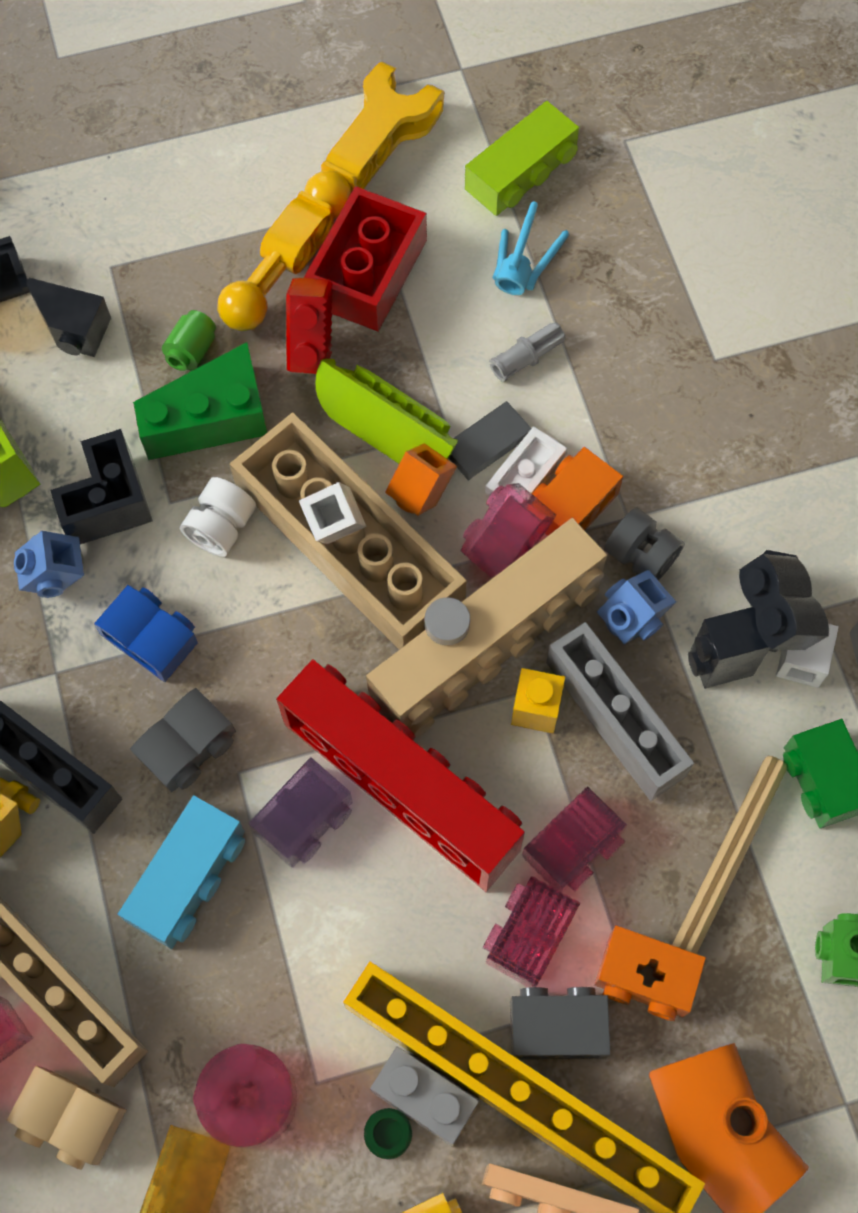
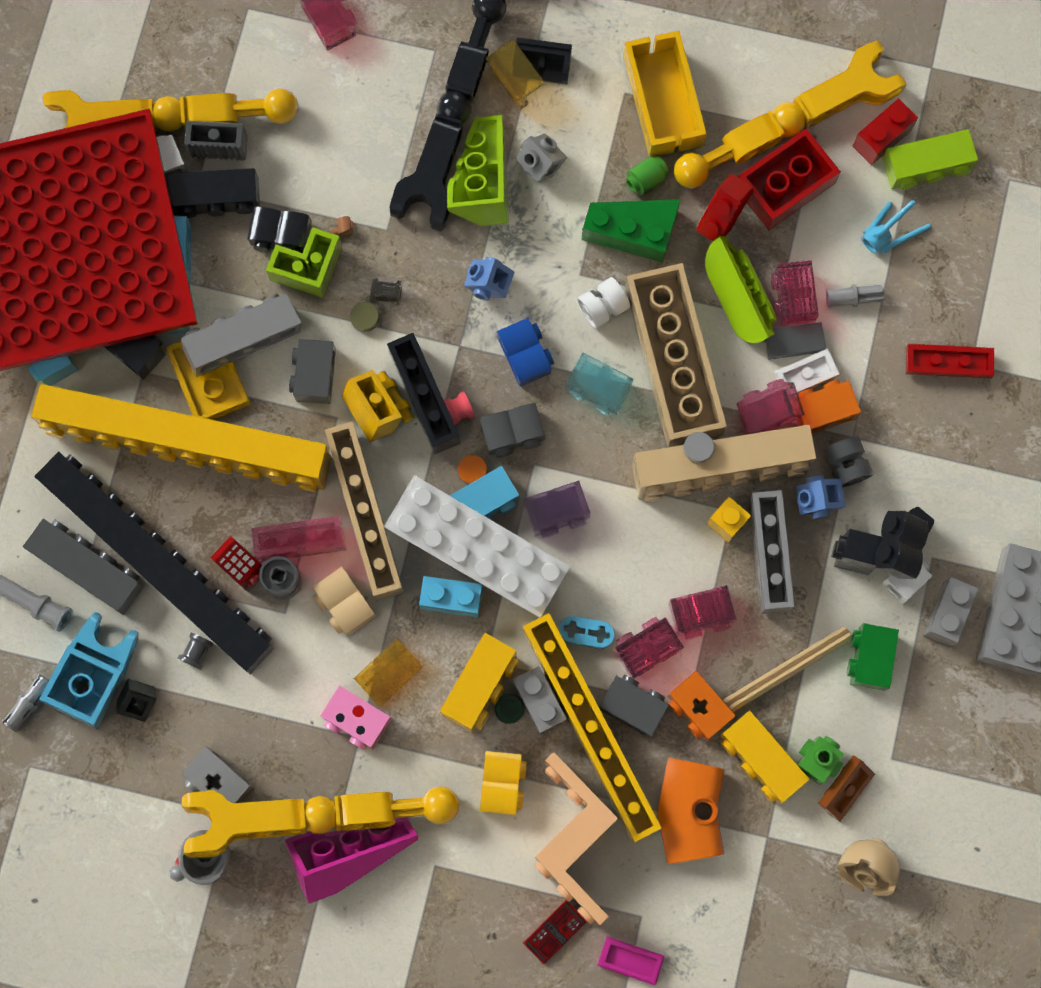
camera: 30 degrees right, 10 degrees up
(40, 384) = (540, 157): none -> light grey brick
(72, 316) = (582, 119): black slope -> none
(96, 751) = (459, 408): none -> coral wheel
(108, 499) = (547, 256): black brick -> none
(154, 824) = (471, 469): none -> orange tile
(159, 237) = (664, 94): none -> yellow piece
(215, 924) = (476, 546): none -> white brick
(217, 1019) = (451, 596): none -> medium azure brick
(218, 1098) = (429, 638): clear pink brick -> none
(268, 621) = (598, 384): none -> clear light blue brick
(326, 1123) = (480, 684): none -> yellow brick
(332, 513) = (669, 345): white brick -> none
(401, 774) = (623, 518): red brick -> none
(420, 479) = (737, 346): orange brick -> none
(431, 949) = (585, 639): none -> medium azure beam
(449, 150) = (884, 131): none -> red brick
(454, 382) = (795, 293): none -> clear pink brick
(688, 366) = (949, 361): none -> red plate
(776, 995) = (763, 758): none -> yellow brick

